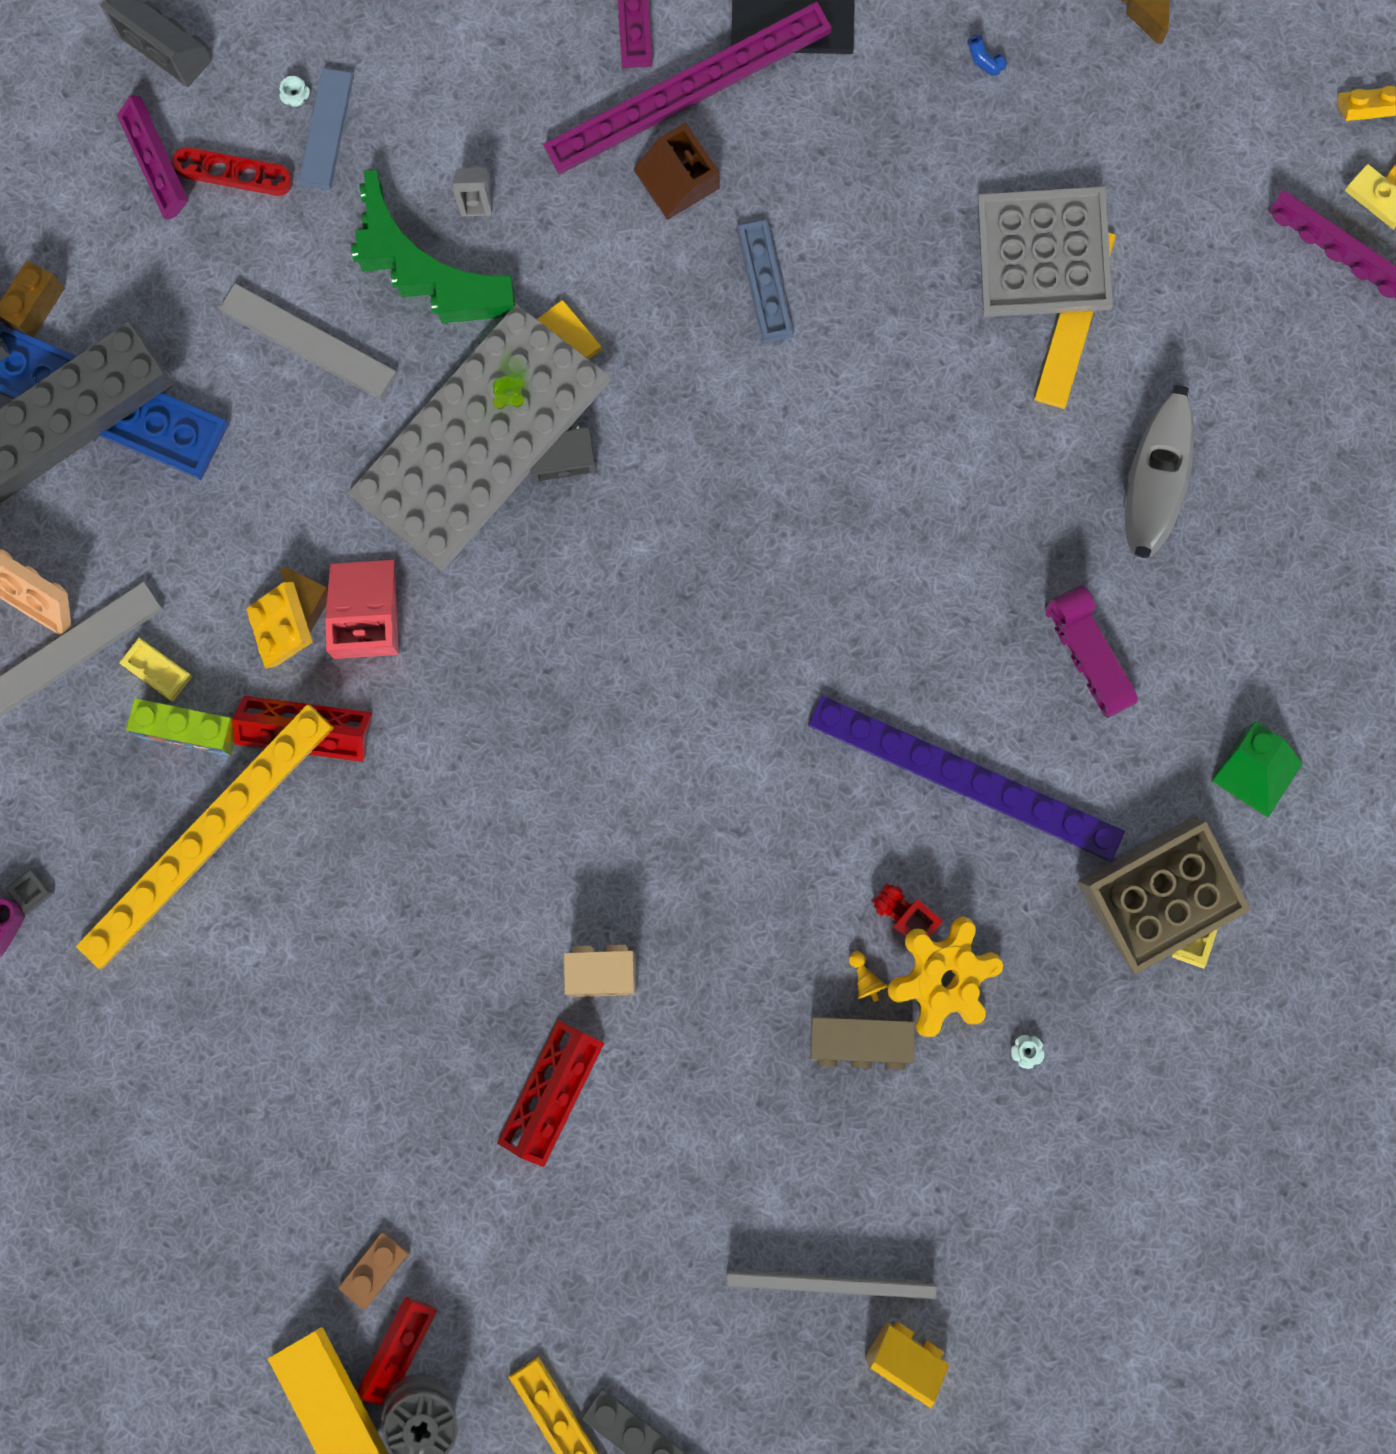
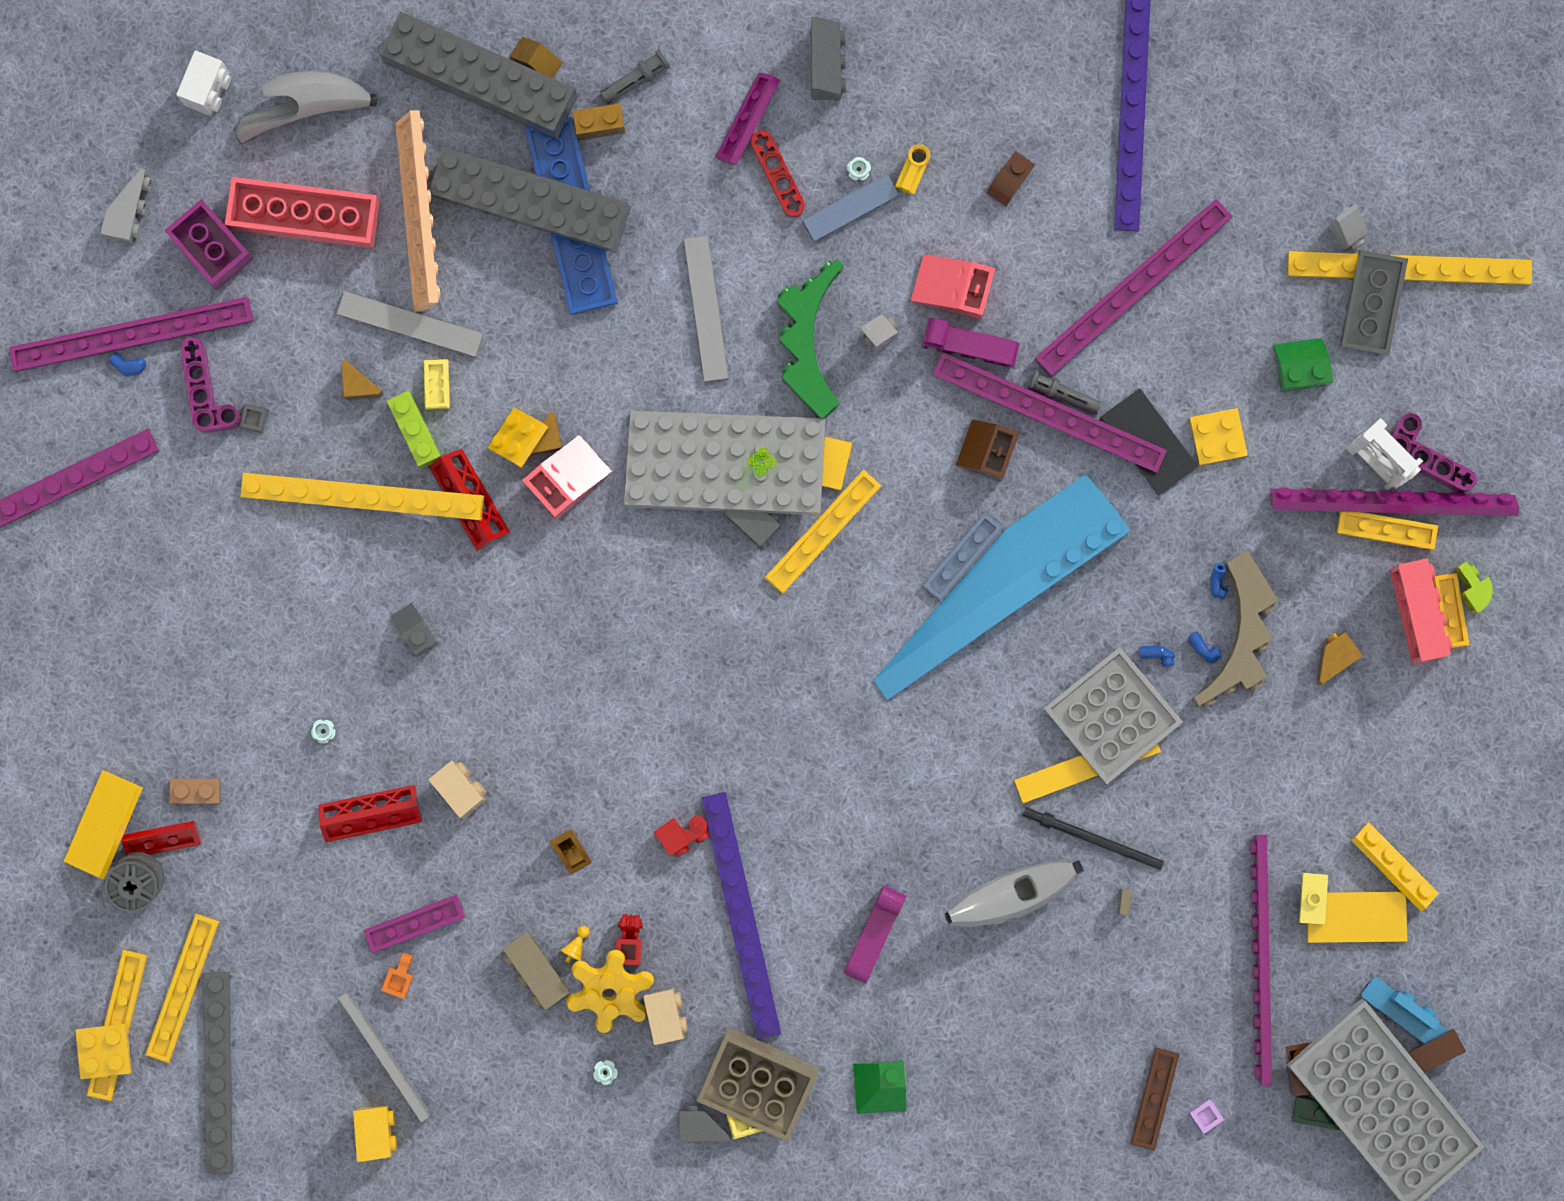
camera: 50 degrees right, 5 degrees up
(19, 221) = (644, 71): none -> dark grey pin
(86, 750) = (356, 384): none -> pearl gold slope
(338, 38) = (912, 171): none -> yellow piece
(393, 891) = (414, 630): none -> dark grey slope
(412, 1075) = (318, 726): none -> light aqua plate
(487, 83) = (953, 285): none -> coral slope
(555, 114) = (969, 343): none -> magenta beam
(629, 397) = (823, 531): none -> yellow tile
(667, 68) = (1051, 391): none -> dark grey pin
(708, 1137) = (414, 923): none -> magenta plate
(756, 1202) = (398, 980): none -> orange plate
(760, 905) = (570, 851): none -> pearl gold slope
(821, 249) = (1009, 575): none -> dark azure wedge
(833, 783) = (676, 839): none -> red brick
(1011, 164) = (1158, 651): none -> blue arm
(1018, 936) = (665, 1016): none -> tan brick
(1030, 37) = (1242, 666): none -> dark tan arch
(1048, 120) = (1201, 648): none -> blue arm
(1104, 394) = (1047, 820): none -> black bar
(1163, 994) = (699, 1126): none -> dark grey slope
(1246, 380) = (1124, 902): none -> dark tan tile

